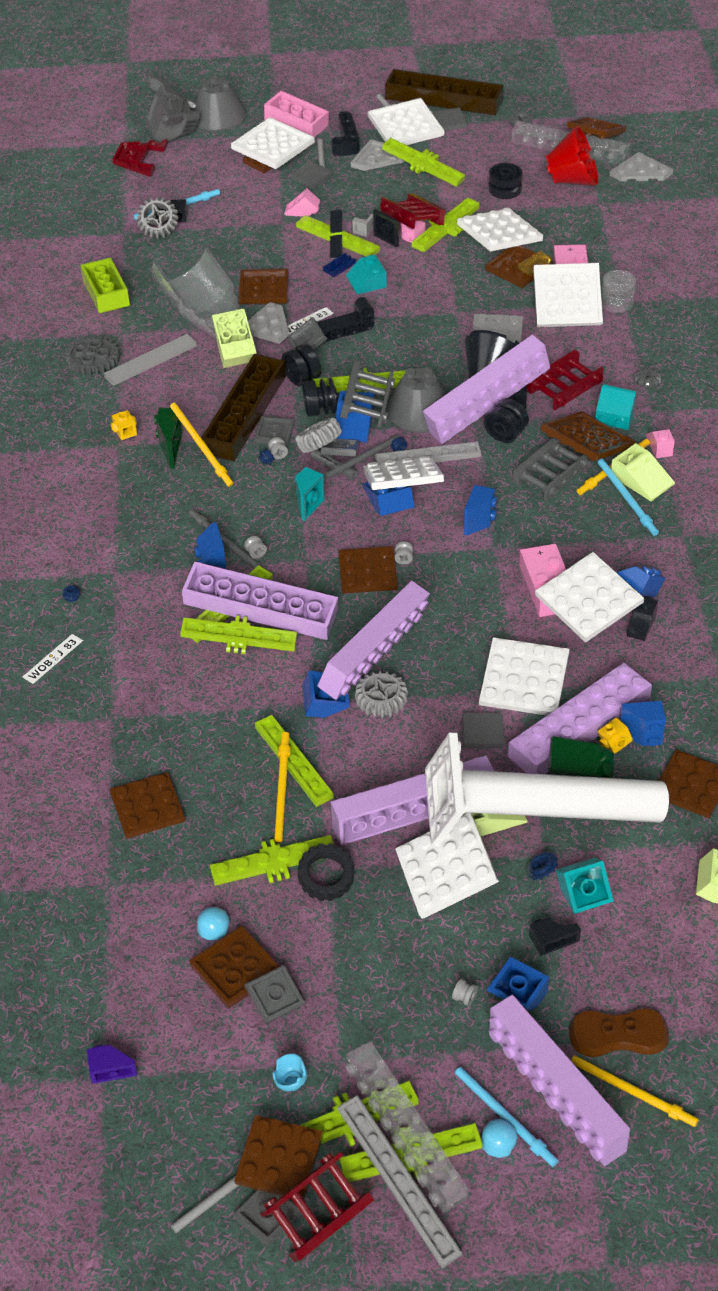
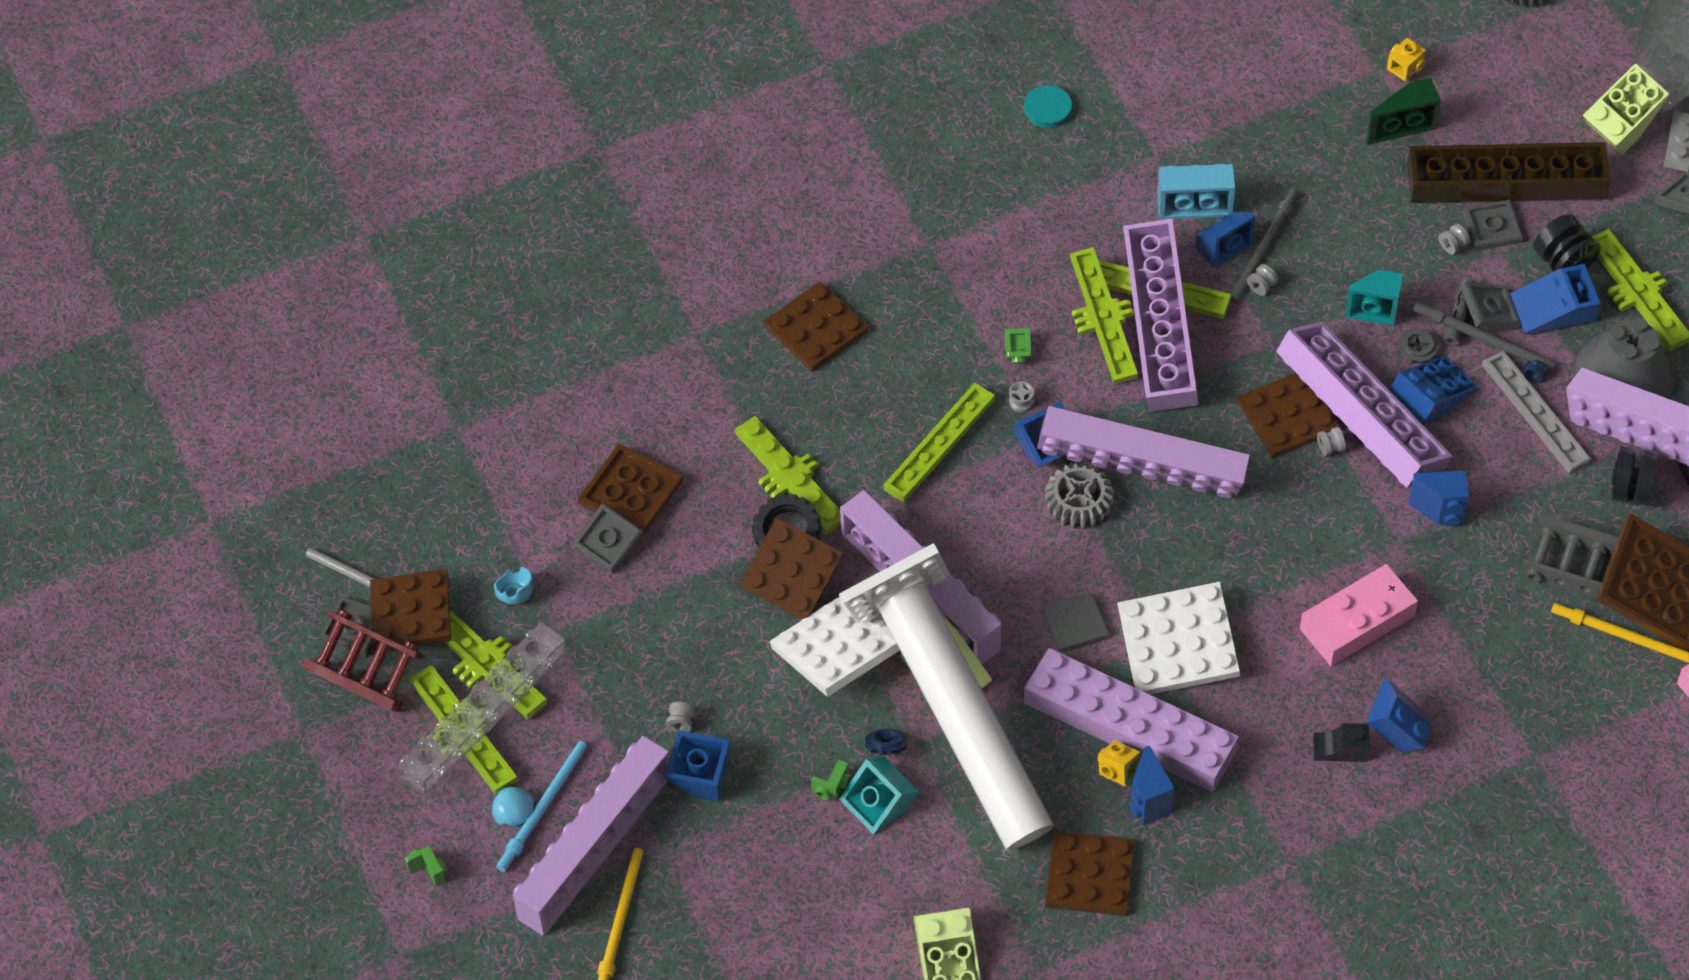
camera: 70 degrees right, 10 degrees up
(36, 615) = (1047, 106): none -> teal tile
(52, 658) = (992, 151): white sticker -> none
(71, 593) = (1097, 130): dark blue plate -> none
(109, 1064) = (467, 420): dark purple slope -> none
(150, 359) = (1557, 39): light grey tile -> none
(167, 553) = (1195, 191): none -> medium azure brick
(213, 923) = (680, 448): medium azure hair -> none
(219, 470) = (1378, 192): yellow bar -> none
(235, 690) = (1018, 345): none -> bright green bracket
(266, 457) = (1432, 231): dark blue plate -> none
(276, 698) = (1025, 392): none -> light grey wheel
(284, 753) = (938, 425): yellow bar -> none
(301, 364) = (1619, 203): black wheel -> none
(318, 435) = (1490, 271): light grey gear -> none
(344, 487) = (1426, 340): none -> dark grey gear
(352, 395) = (1593, 271): dark grey fence -> none
(367, 878) = (791, 570): none -> reddish brown plate
(388, 524) = (1362, 402): none -> lavender brick
(400, 1182) = (438, 705): light grey tile -> none
(402, 473) = (1464, 389): white plate -> none
(534, 1213) = (433, 865): none -> bright green bracket
(551, 936) = (788, 778): black arch -> none
(564, 907) = (832, 788): none -> bright green bracket
(579, 758) = (1048, 732): dark green slope -> none
(589, 597) = (1331, 663): white plate -> none
(636, 1031) = (699, 903): reddish brown plate -> none
(641, 472) = (1622, 669): yellowish green slope -> none
(645, 519) = (1538, 700): medium azure bar -> none

